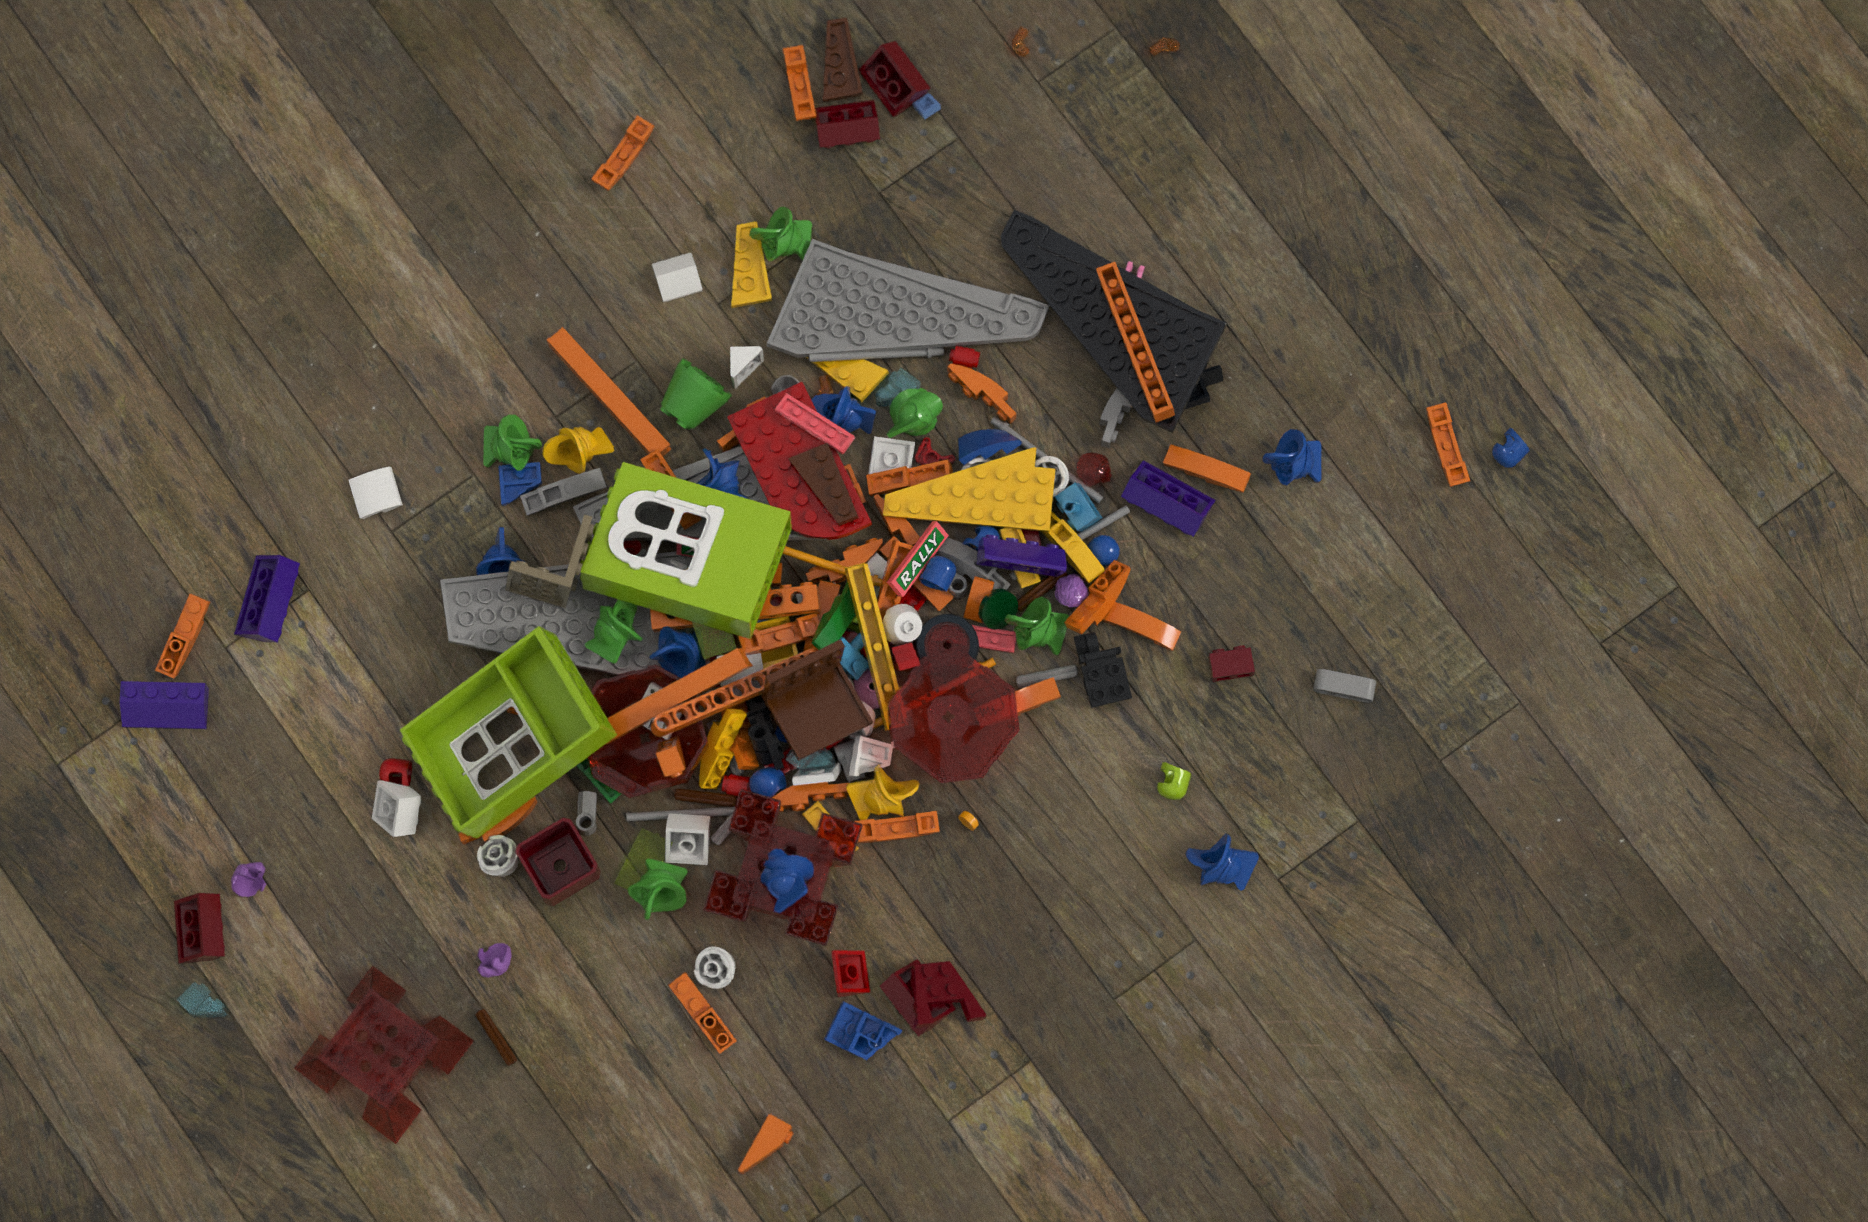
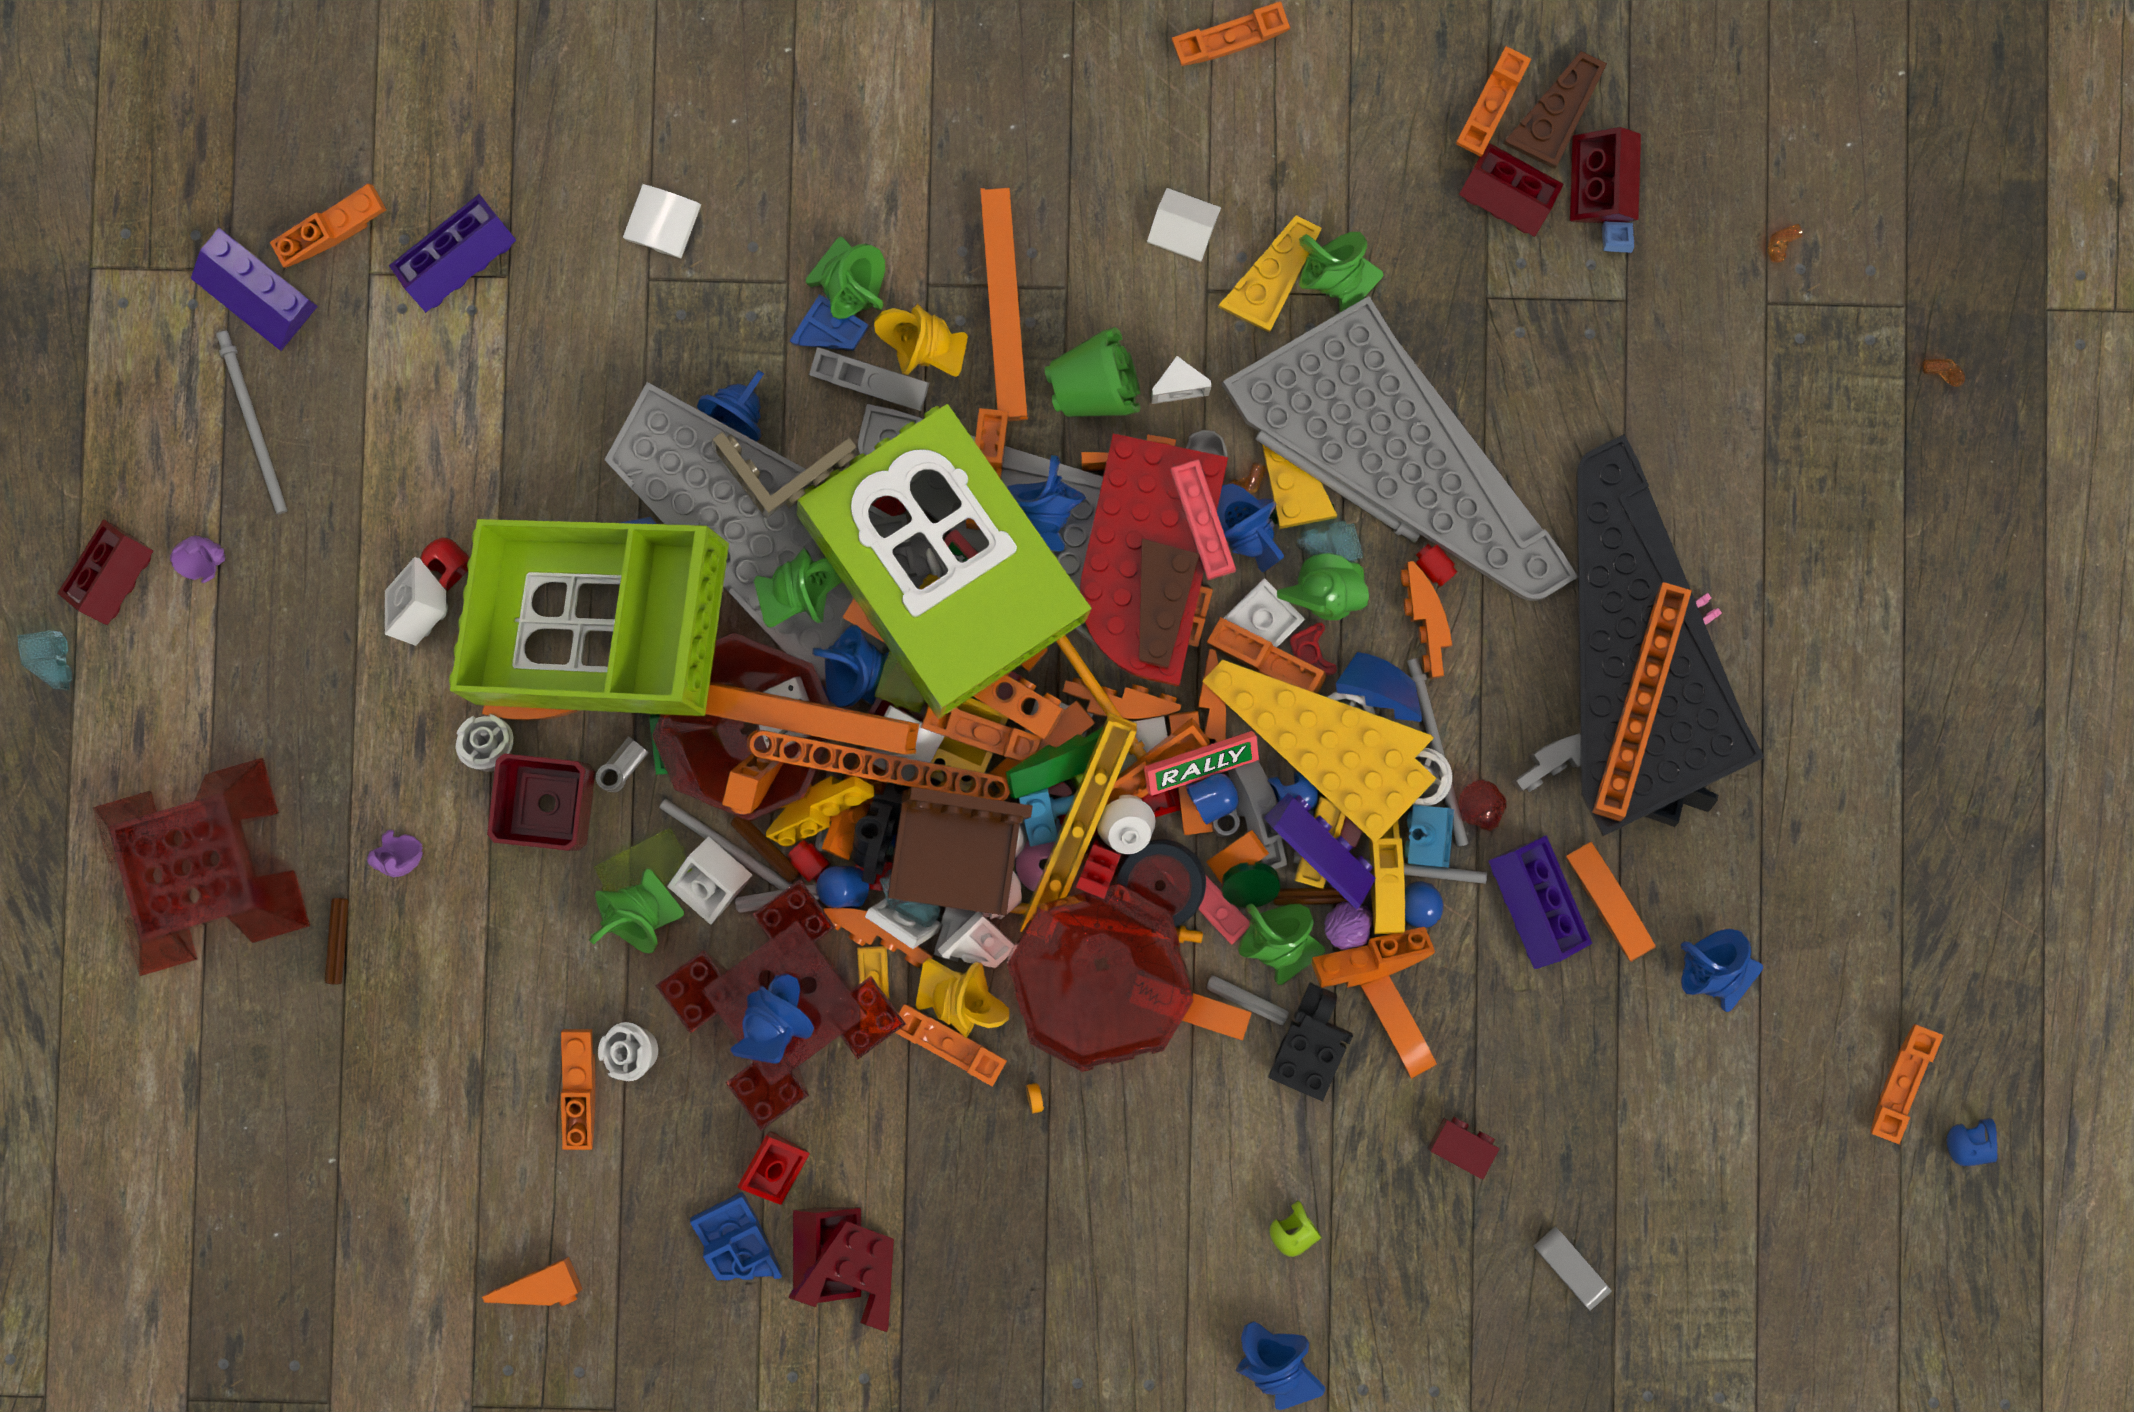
camera: 40 degrees right, 10 degrees up
(177, 752) = (229, 353): none -> light grey bar

